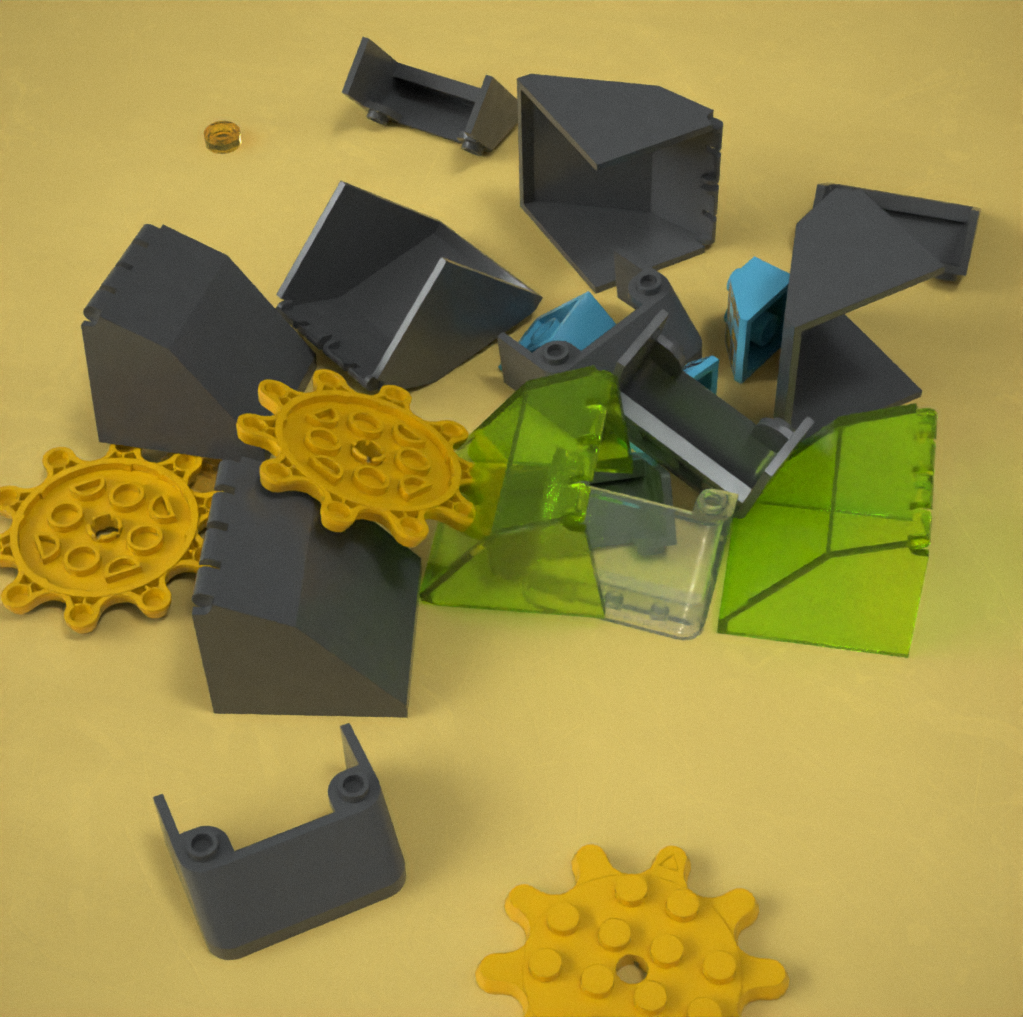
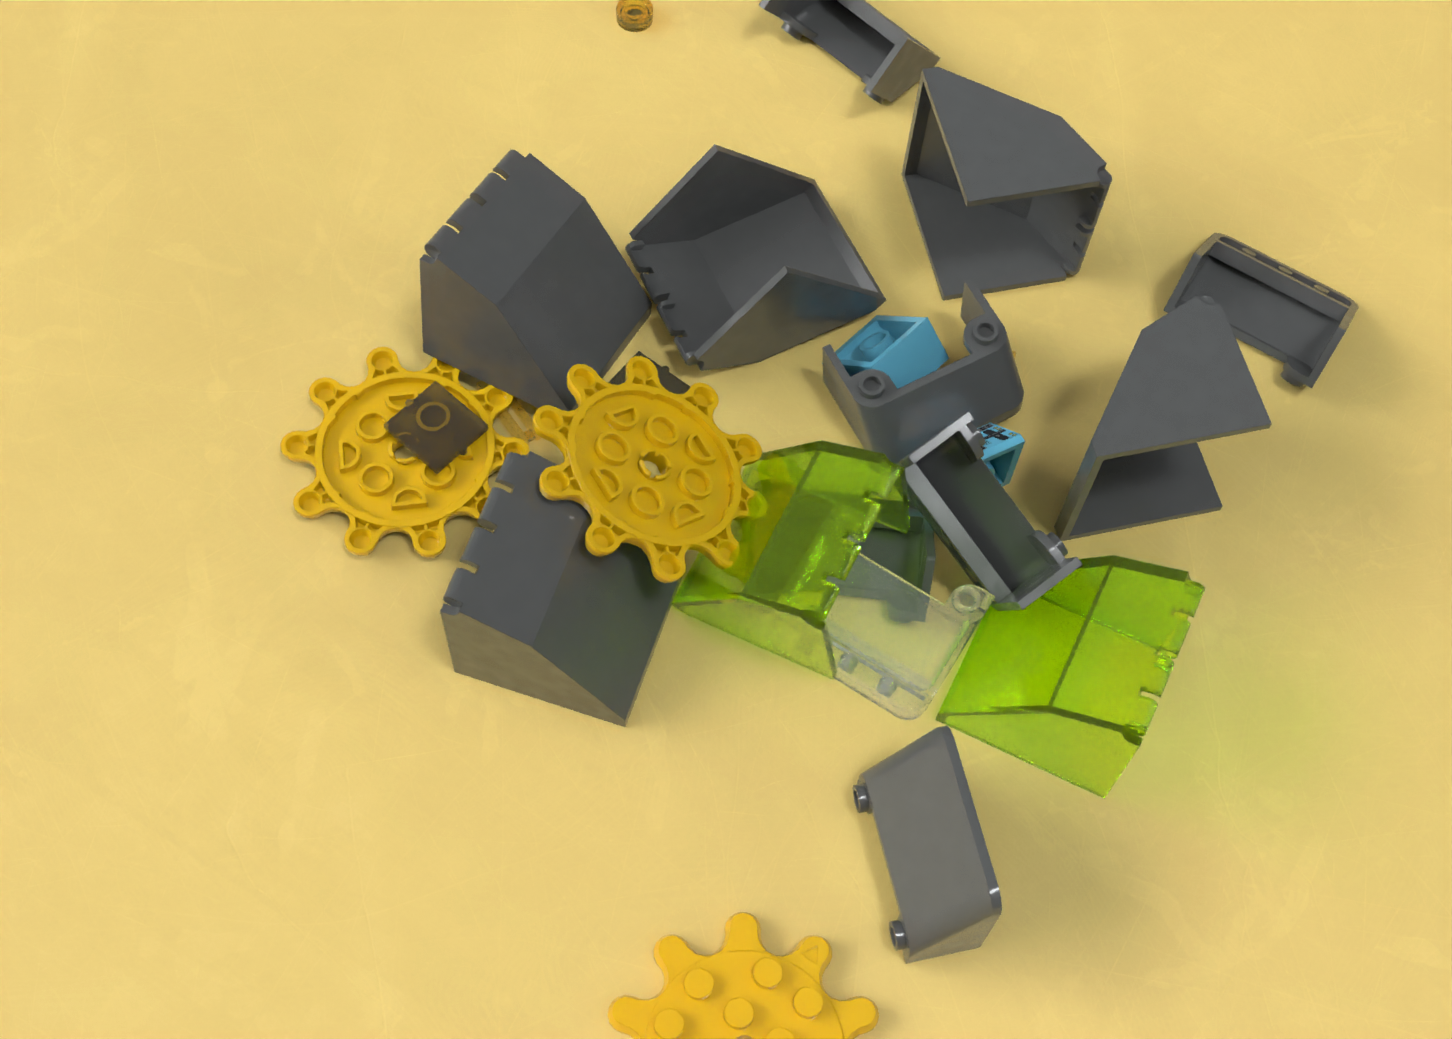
camera: 10 degrees right, 15 degrees up
(131, 499) = (436, 427): none -> clear smoke piece
(295, 877) = (480, 875): dark grey windscreen -> none
(754, 315) = (1083, 383): medium azure slope -> none
(762, 723) = (931, 848): none -> dark grey windscreen

